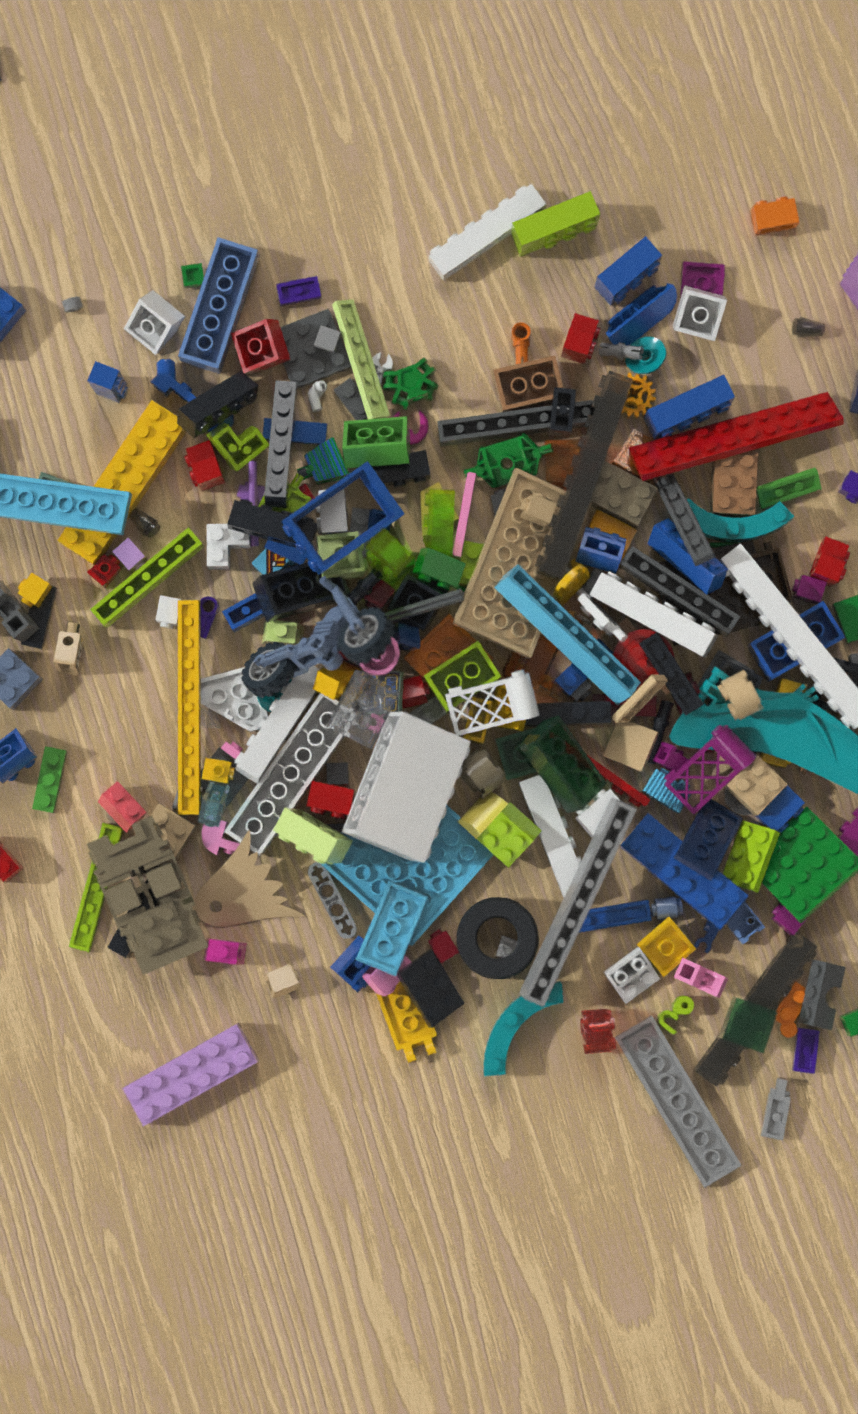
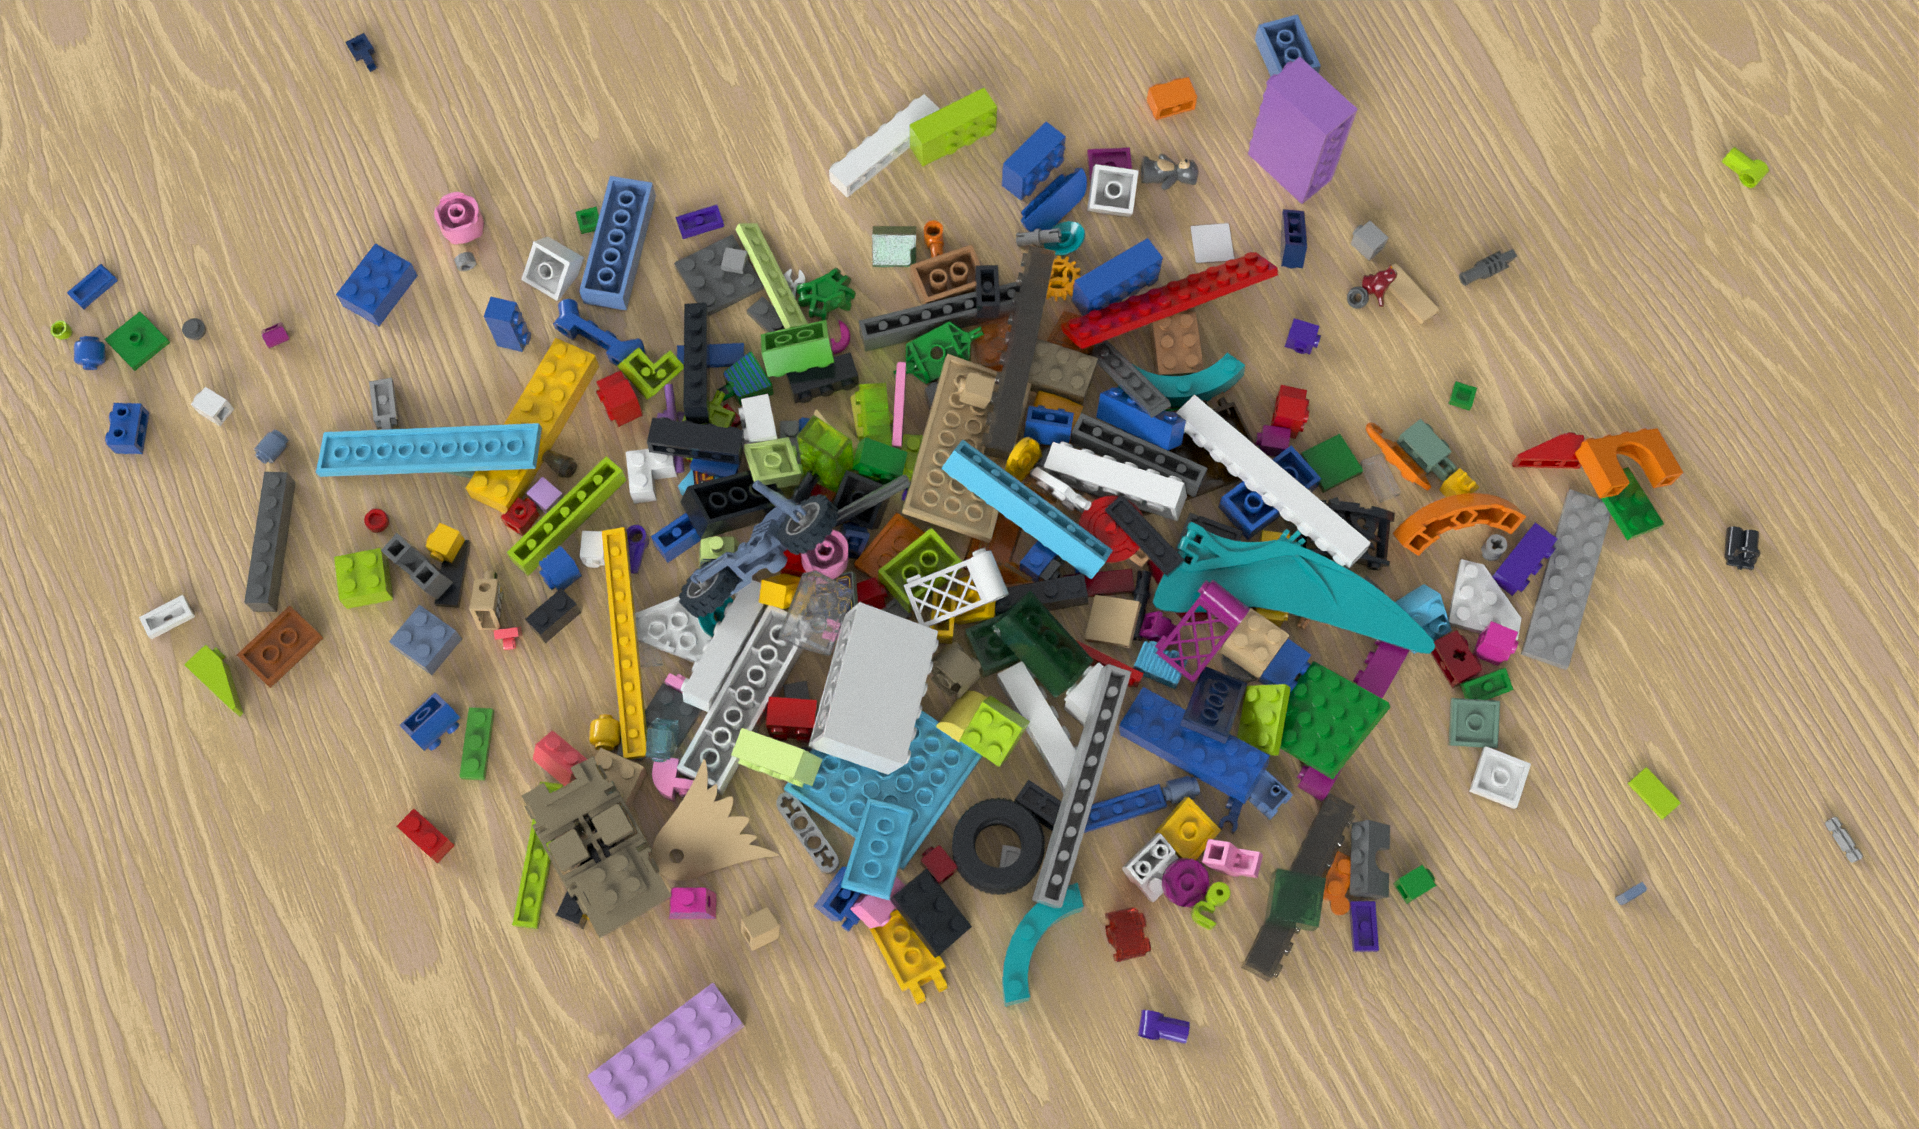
camera: 10 degrees left, 15 degrees down
(59, 256) = (459, 218): none -> bright pink brick
(85, 684) = (508, 635): none -> coral tile
(126, 671) = (553, 615): none -> black brick
(135, 631) = (559, 569): none -> blue brick
(163, 787) = (605, 732): none -> yellow head
(217, 404) = (625, 331): black brick -> none
(218, 771) = (663, 704): yellow brick -> none
(260, 346) = (665, 274): red brick -> none
(315, 394) = (728, 316): white arm -> none
(377, 490) = (800, 386): blue door -> none
(482, 339) = (893, 246): none -> clear green slope
(538, 906) = (1040, 803): none -> black hinge
(579, 339) = (995, 231): red brick -> none
(611, 1111) = (1157, 1026): none -> dark purple piece
(639, 698) = (1114, 566): tan tile -> none
(656, 991) = (1185, 882): none -> magenta tile
(678, 1101) = (1231, 1005): light grey plate -> none
(741, 695) = (1222, 543): tan brick -> none
(758, 295) = (1167, 172): none -> dark grey piece
(776, 1111) = (1344, 1000): light grey hinge -> none
(788, 375) = (1212, 243): none -> white sticker
(788, 487) = (1235, 344): bright green plate -> none
(807, 328) = (1223, 195): clear smoke cone -> none

